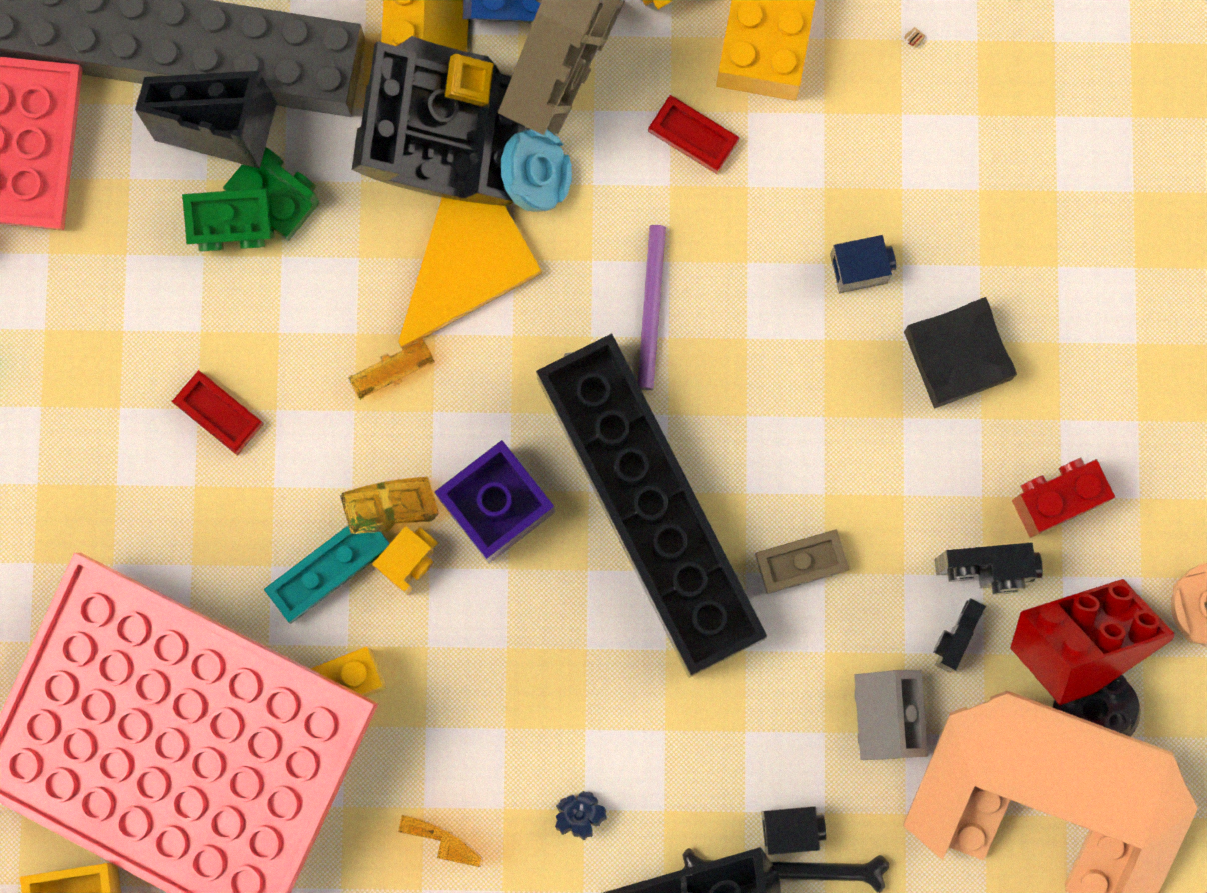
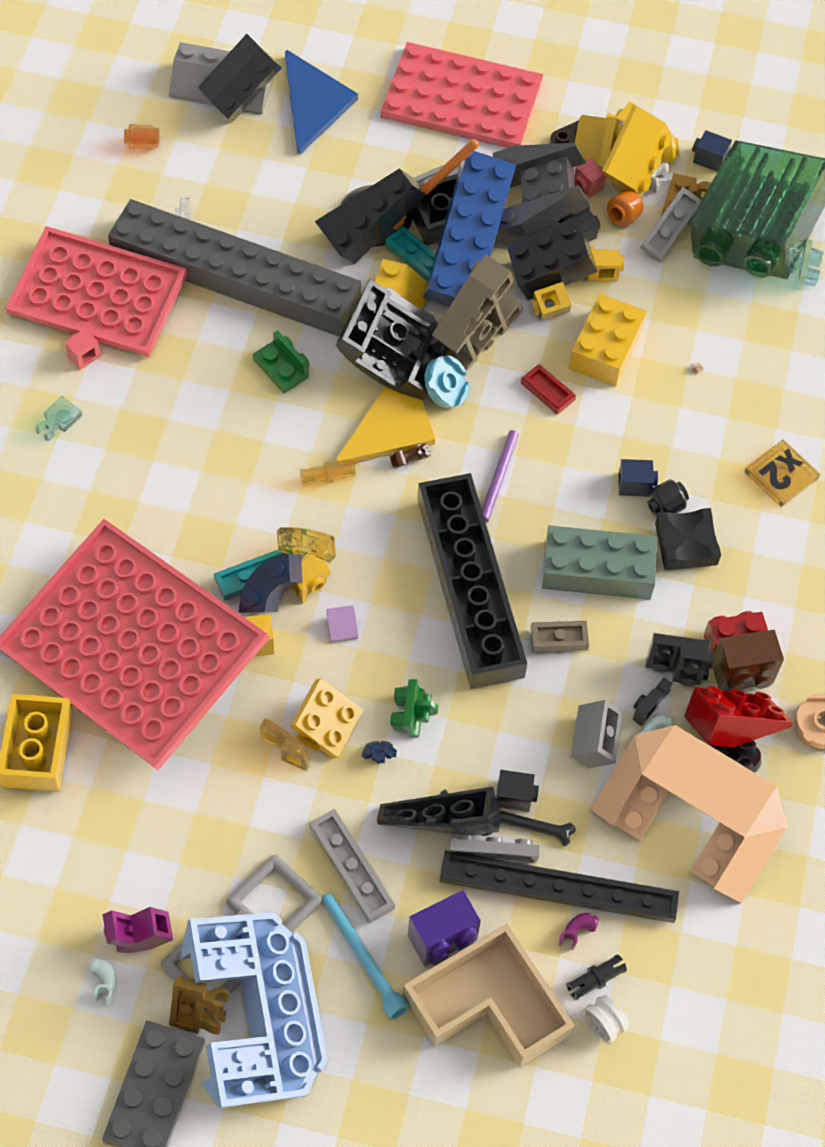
camera: 10 degrees right, 20 degrees down
(210, 113) = (257, 306): black wedge -> none
(217, 412) = (213, 474): red tile -> none
(227, 217) = (251, 367): green bracket -> none
(348, 604) = (269, 583): none -> dark blue brick
(469, 80) = (418, 321): yellow tile -> none
(475, 621) = (342, 623): none -> lavender slope
(491, 787) = (325, 719): none -> yellow plate
(495, 501) = (373, 555): dark purple brick -> none
(520, 299) = (416, 453): none -> reddish brown arm
(618, 735) = (417, 708): none -> green hips
(836, 425) = (599, 562): none -> sand green brick
(917, 290) = (668, 497): none -> black head
(971, 668) = (657, 722): none -> light aqua arm
(1079, 196) = (782, 473): none -> clear yellow tile
(1096, 541) = (747, 660): none -> reddish brown brick

